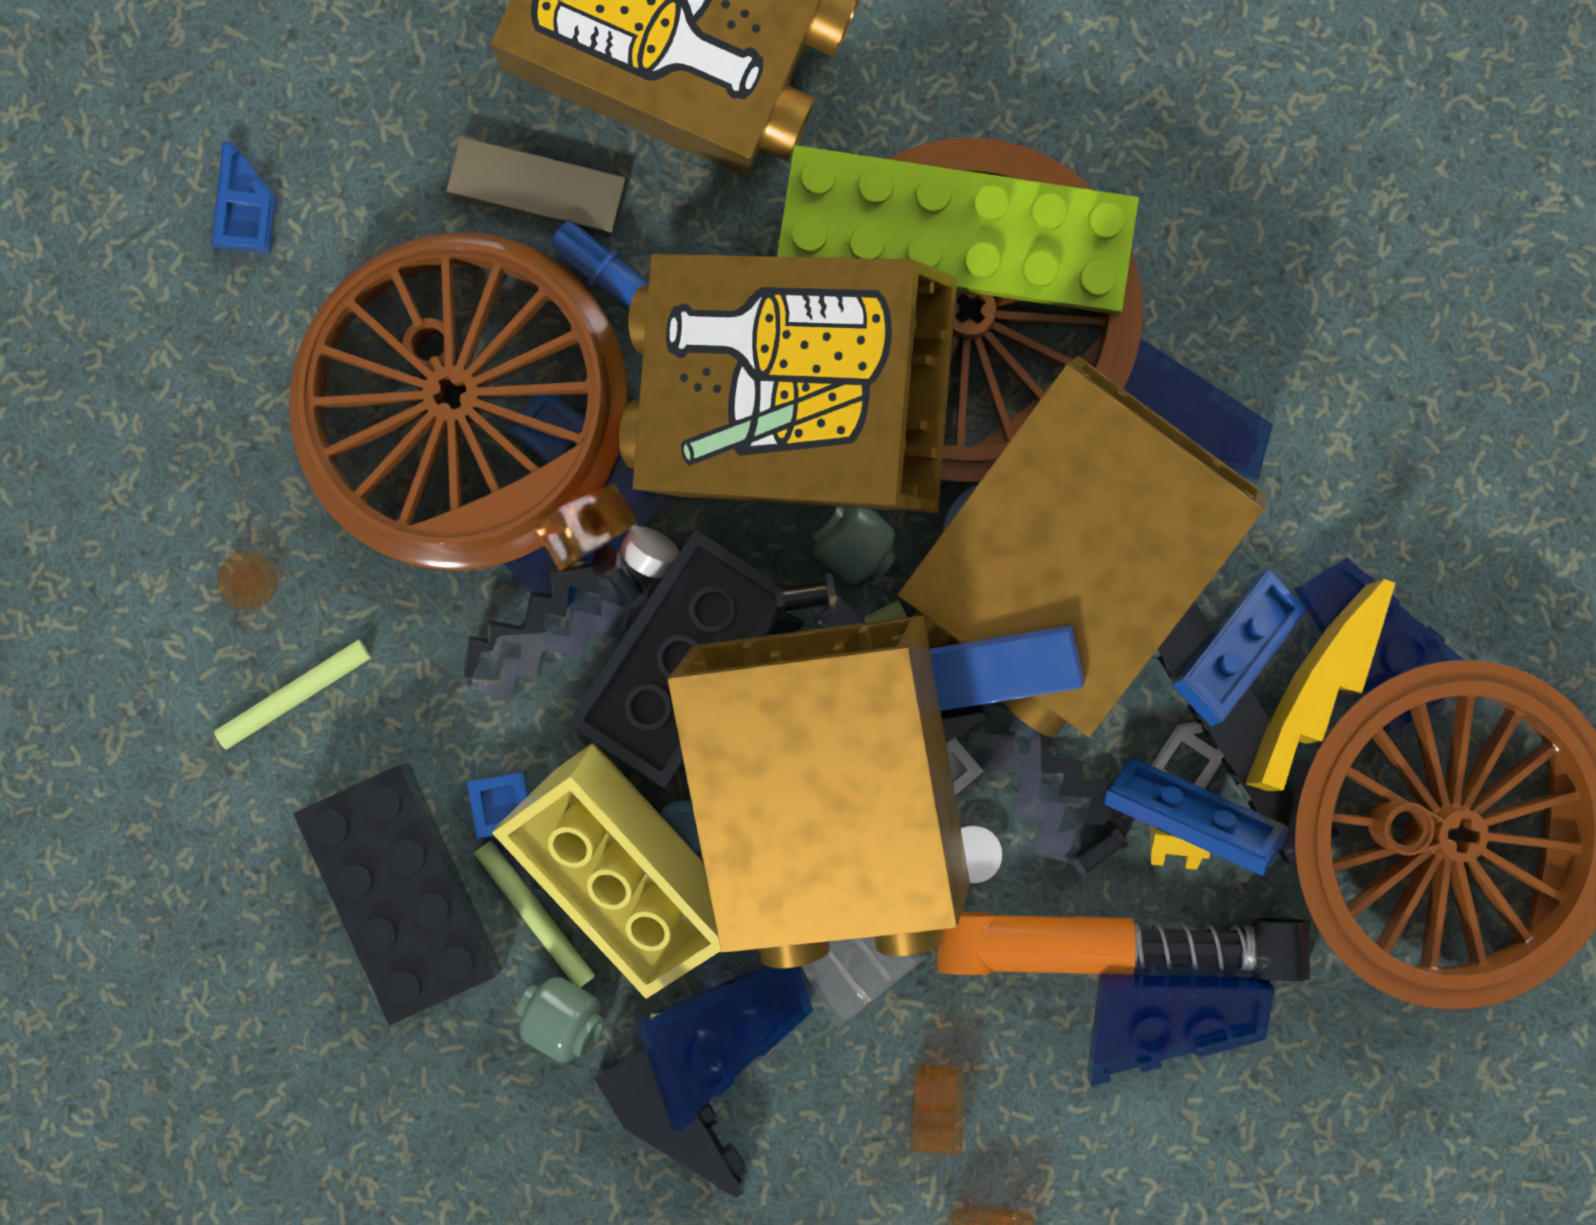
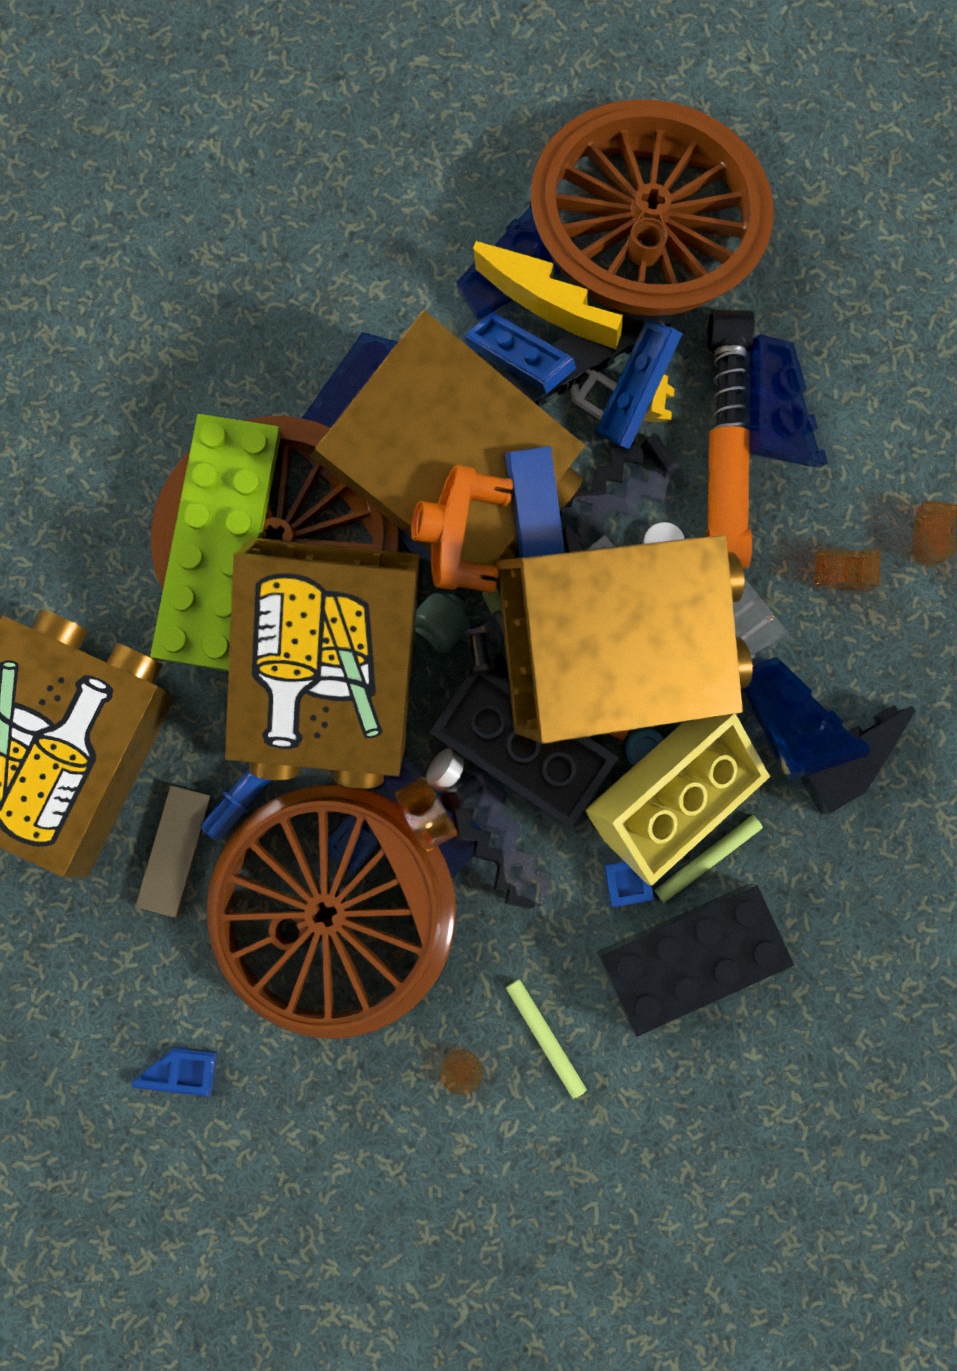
camera: 85 degrees left, 5 degrees down
(560, 1019) = (786, 839): sand green head -> none
(966, 545) = (445, 527): none -> orange connector

